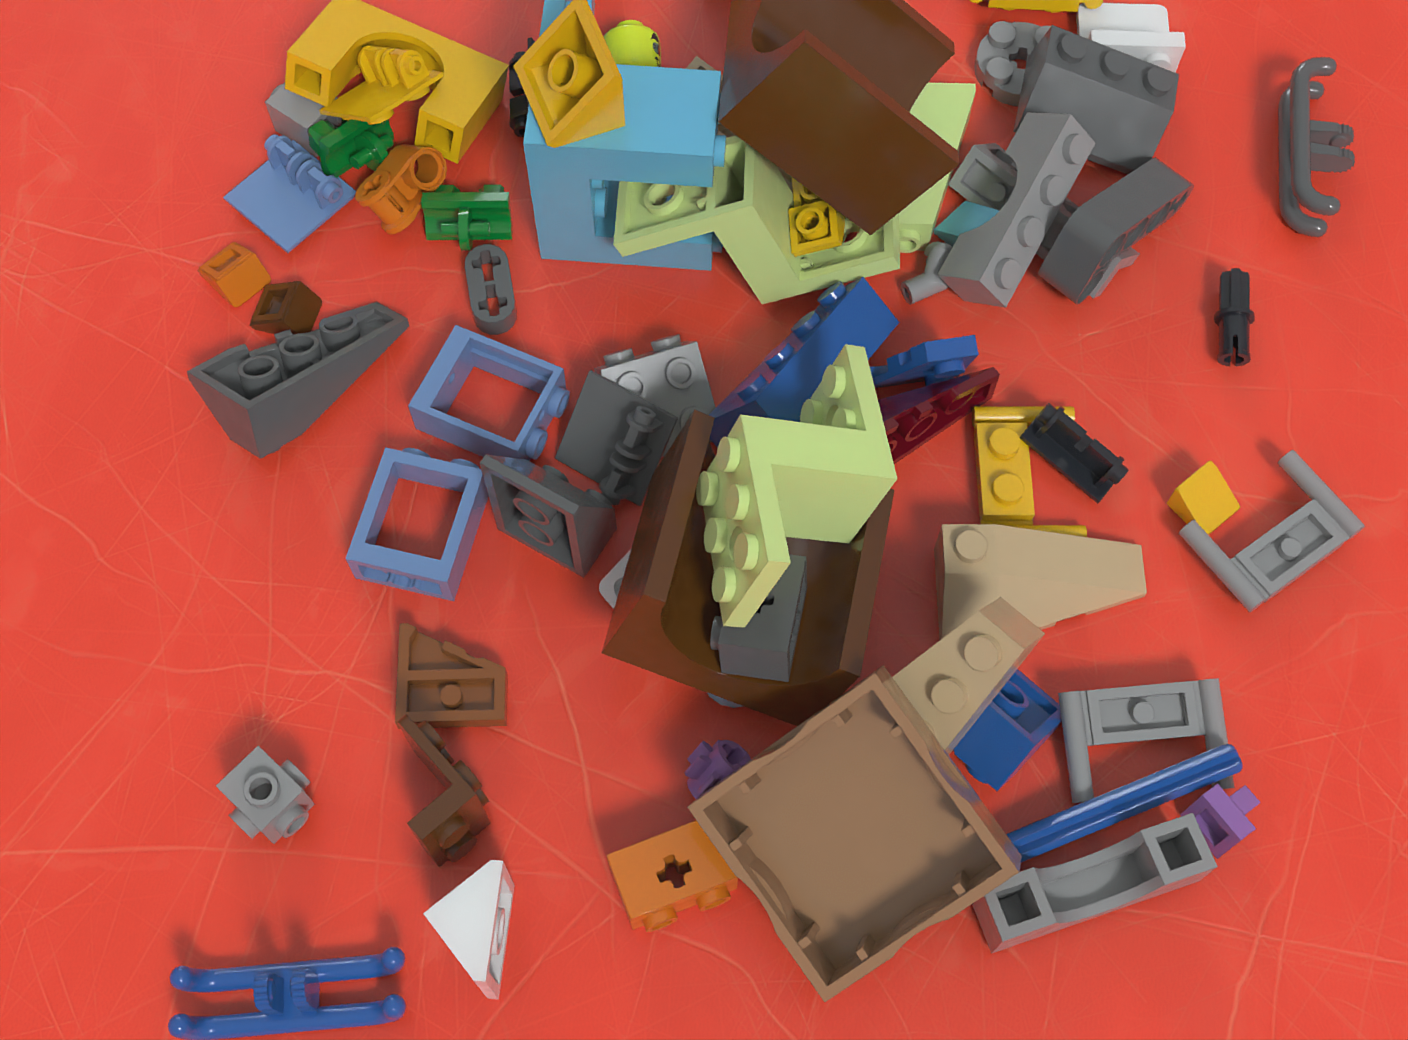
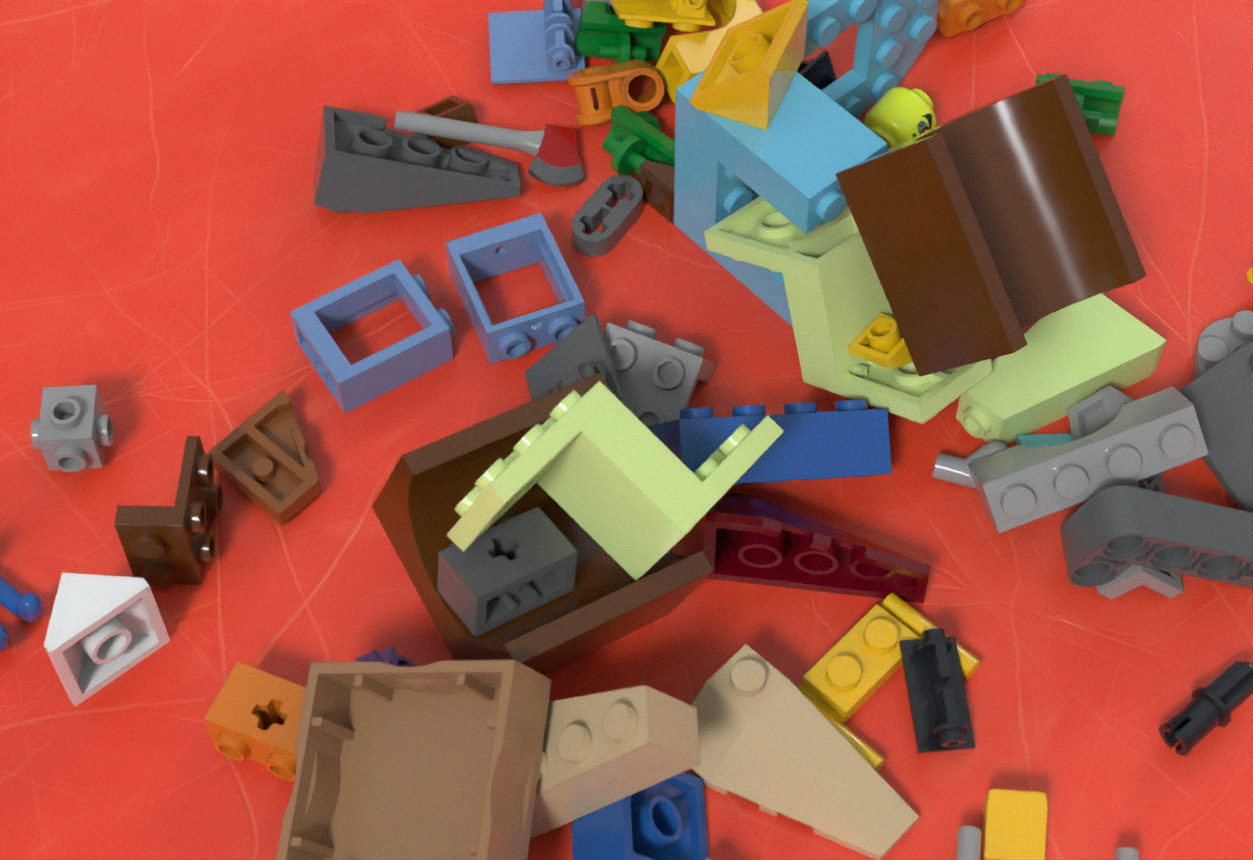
camera: 45 degrees right, 10 degrees down
(235, 274) = (440, 73): orange slope -> none
(389, 265) = (554, 147): none -> piece
(516, 234) = (658, 187): none -> reddish brown slope
(548, 512) = (459, 370): dark grey slope -> none
(927, 362) = (878, 520): blue wing -> none

